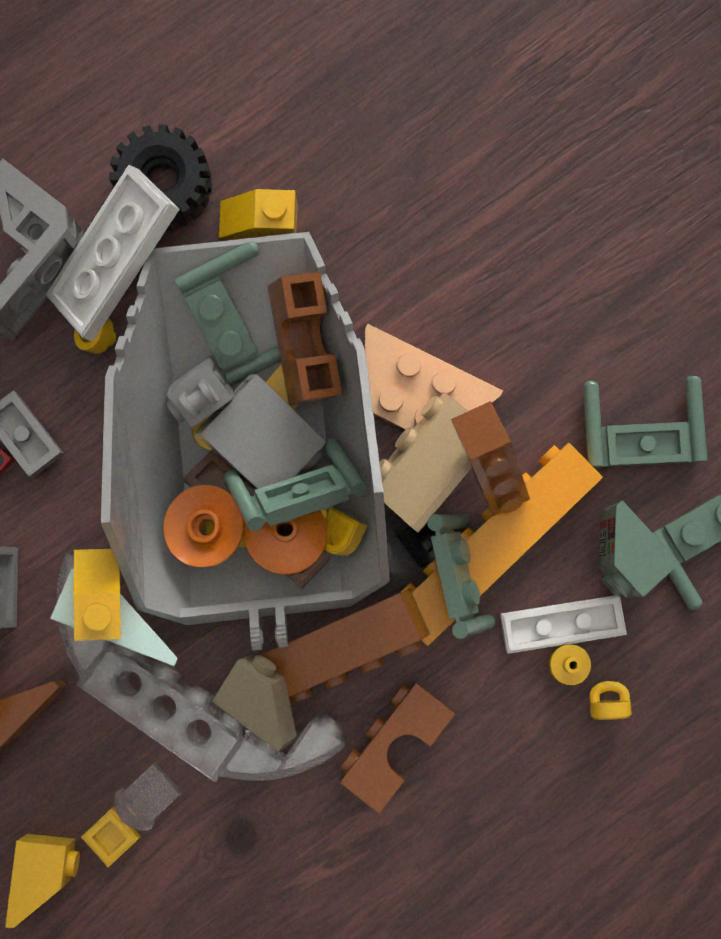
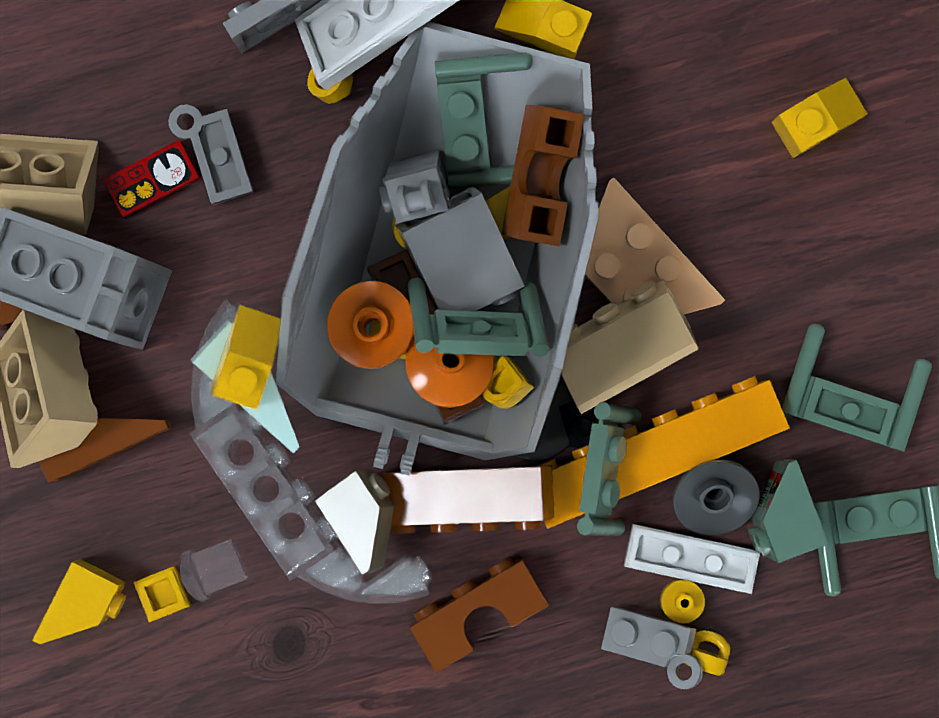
camera: 20 degrees right, 5 degrees up
(491, 458) = (682, 370): dark orange arch -> none
(519, 209) = (819, 117): none -> yellow slope
(560, 711) = (653, 642): none -> light grey hinge
(569, 573) = (719, 510): none -> dark grey dish

